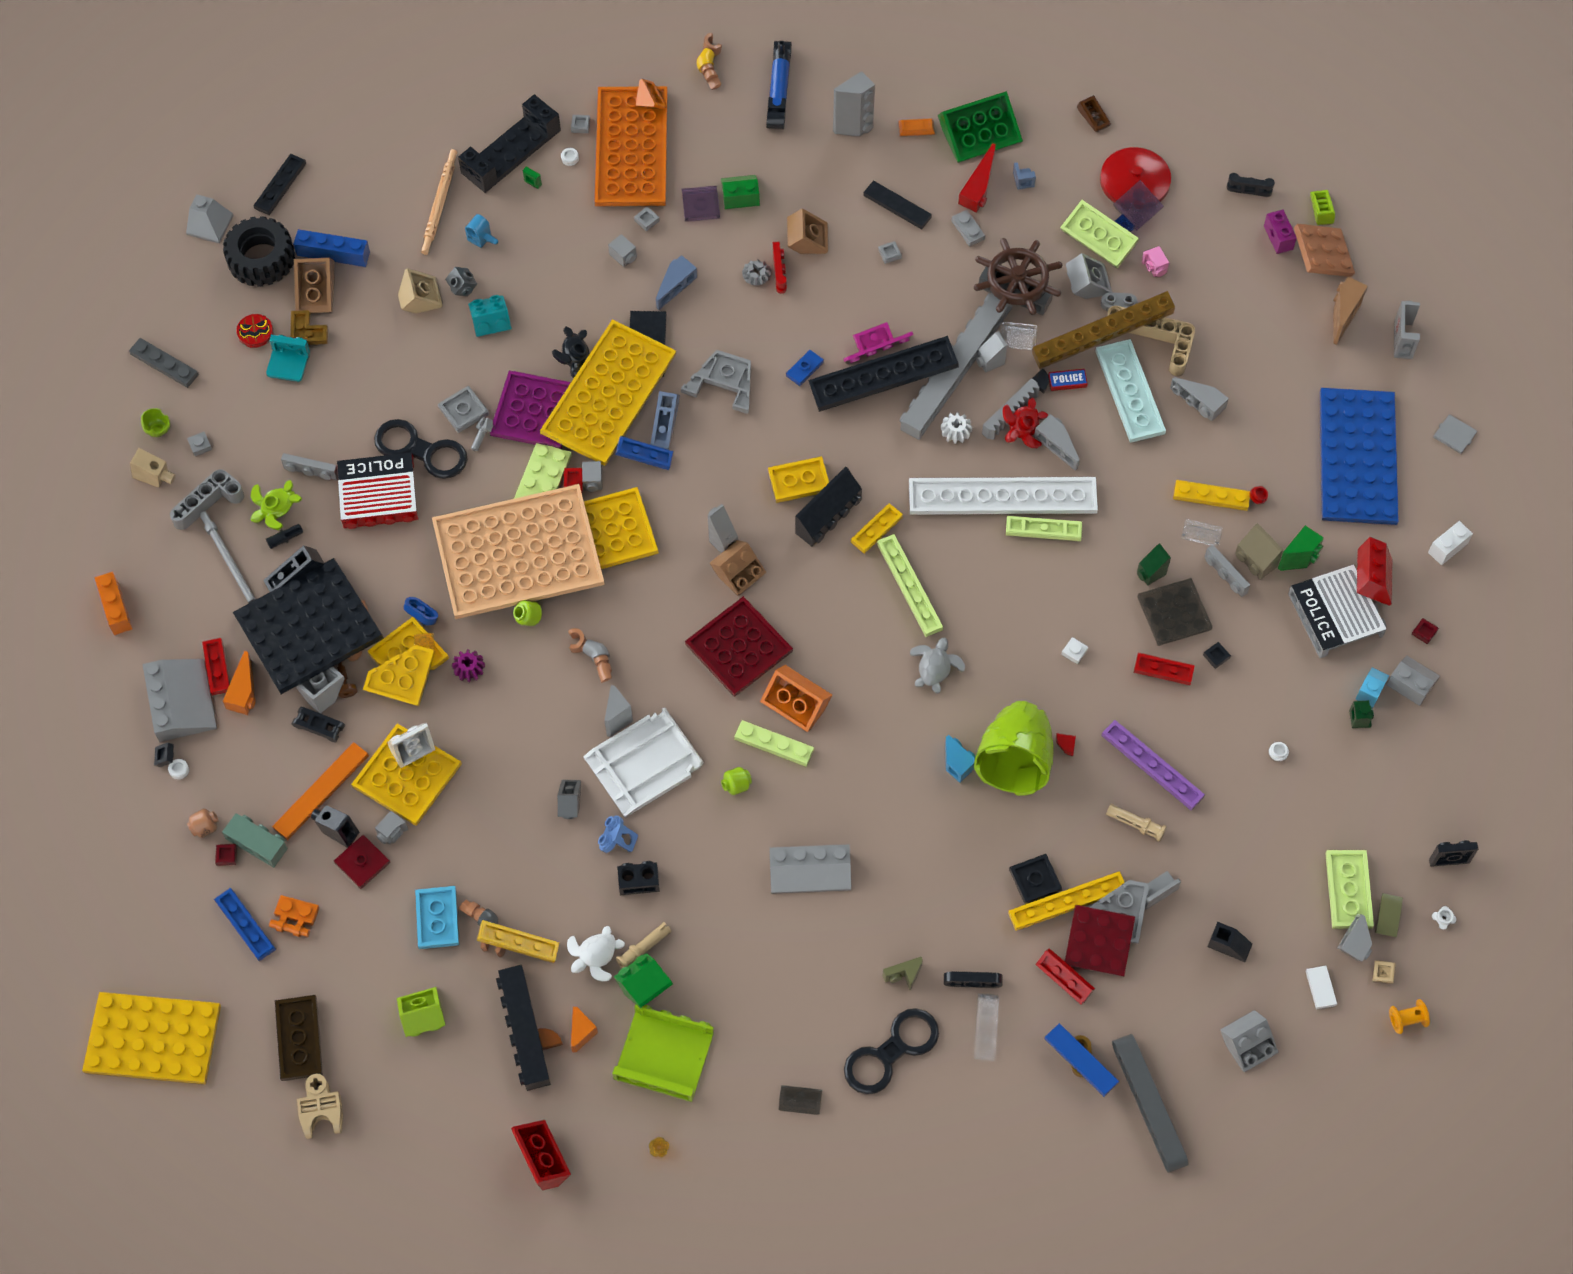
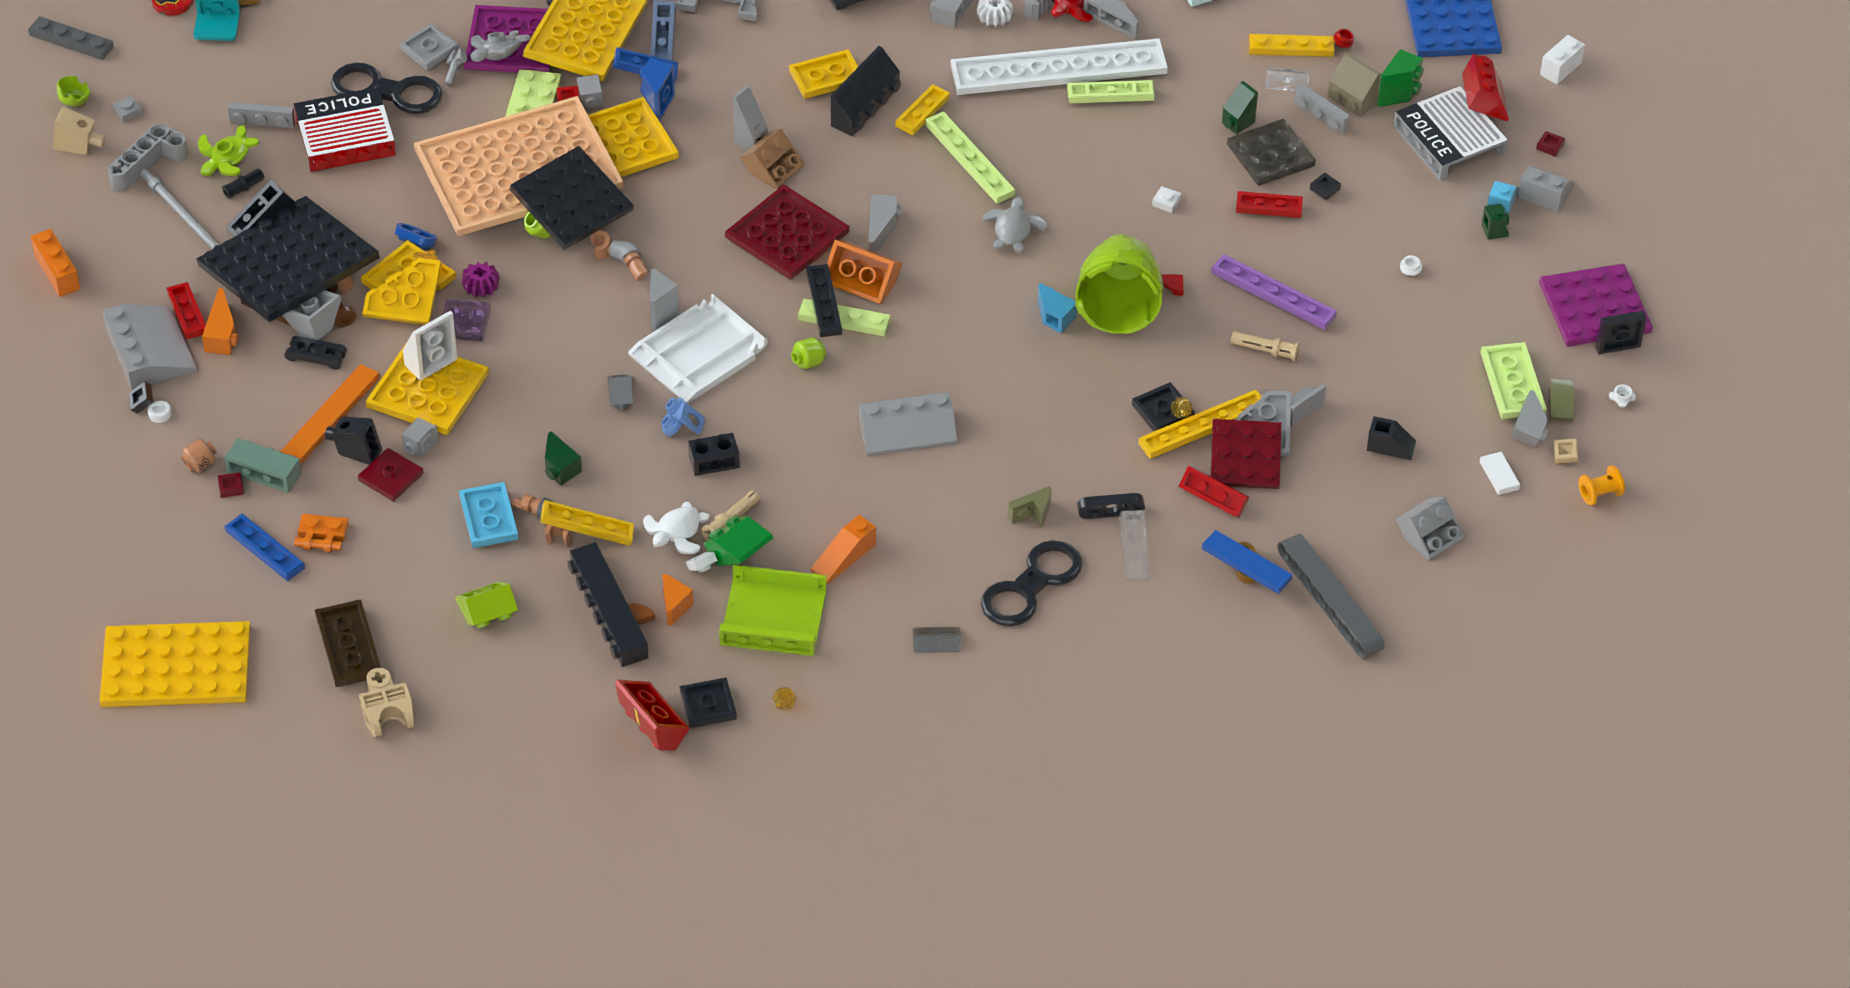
camera: 10 degrees left, 15 degrees down
(448, 706) = (469, 318): none -> clear purple plate
(505, 868) = (560, 460): none -> dark green slope
(518, 421) = (497, 45): none -> light grey animal
(555, 596) = (571, 197): none -> black plate
(593, 1143) = (708, 702): none -> black plate
(610, 992) = (701, 562): none -> white plate
(650, 480) = (658, 85): none -> blue slope
(735, 996) = (846, 548): none -> orange slope
(757, 729) = (824, 300): none -> black plate
(822, 645) = (883, 219): none -> light grey slope
(1050, 886) = (1181, 407): none -> clear yellow plate
(1435, 811) = (1586, 296): none -> magenta plate

